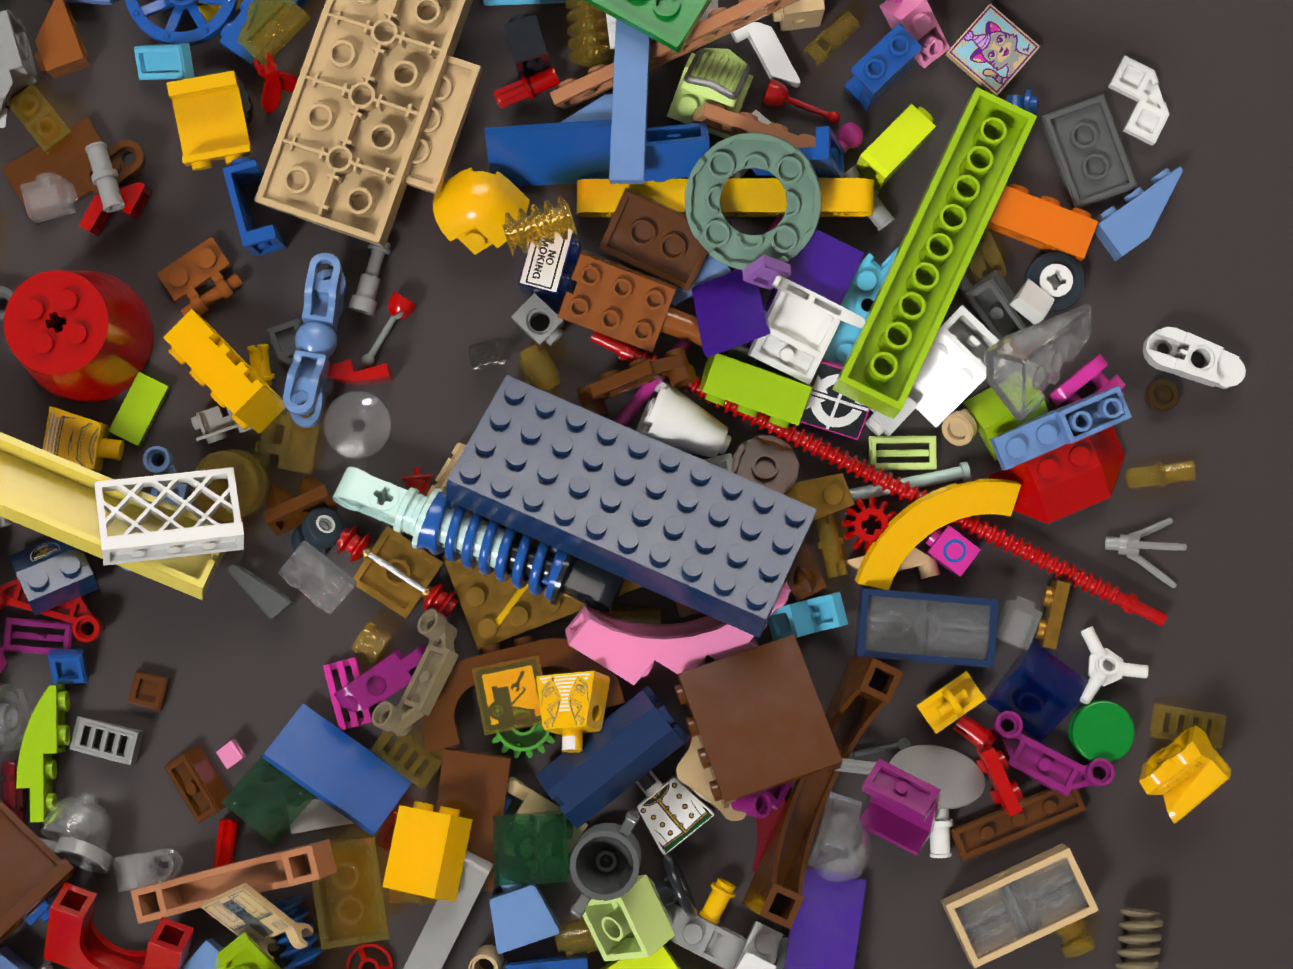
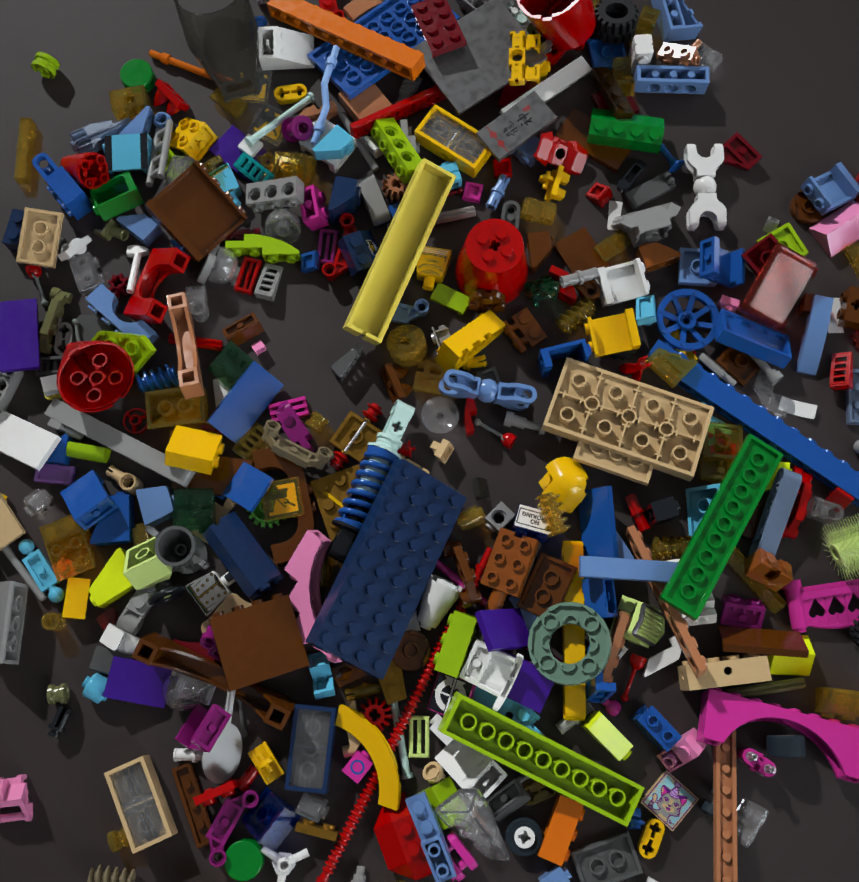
camera: 90 degrees right, 10 degrees down
(44, 250) = (539, 248): none -> reddish brown slope
(48, 197) = (567, 249): clear brick -> none
(111, 100) = (622, 282): none -> white panel
(122, 786) = (243, 290): none -> red tile
(124, 245) = (541, 289): none -> clear green plate
(148, 690) = (295, 303): reddish brown tile -> none
(150, 348) = (482, 301): none -> reddish brown plate
(174, 185) = (576, 315): none -> clear yellow piece
(176, 541) = (372, 312): white fence -> none
(249, 912) = (163, 357): tan flag -> none
(310, 568) = (361, 386): clear plate -> none
(420, 420) = (442, 450): none -> tan tile
(492, 754) = (248, 487): none -> blue slope
(573, 705) = (272, 532): yellow torso -> none
(717, 900) = (158, 618): yellow pin -> none
(764, 270) = (527, 649): medium lavender tile -> none
(834, 35) = (675, 698): clear yellow bar -> none
(1032, 302) = (510, 821): white slope -> none
(1048, 88) = (655, 839): none -> yellow beam

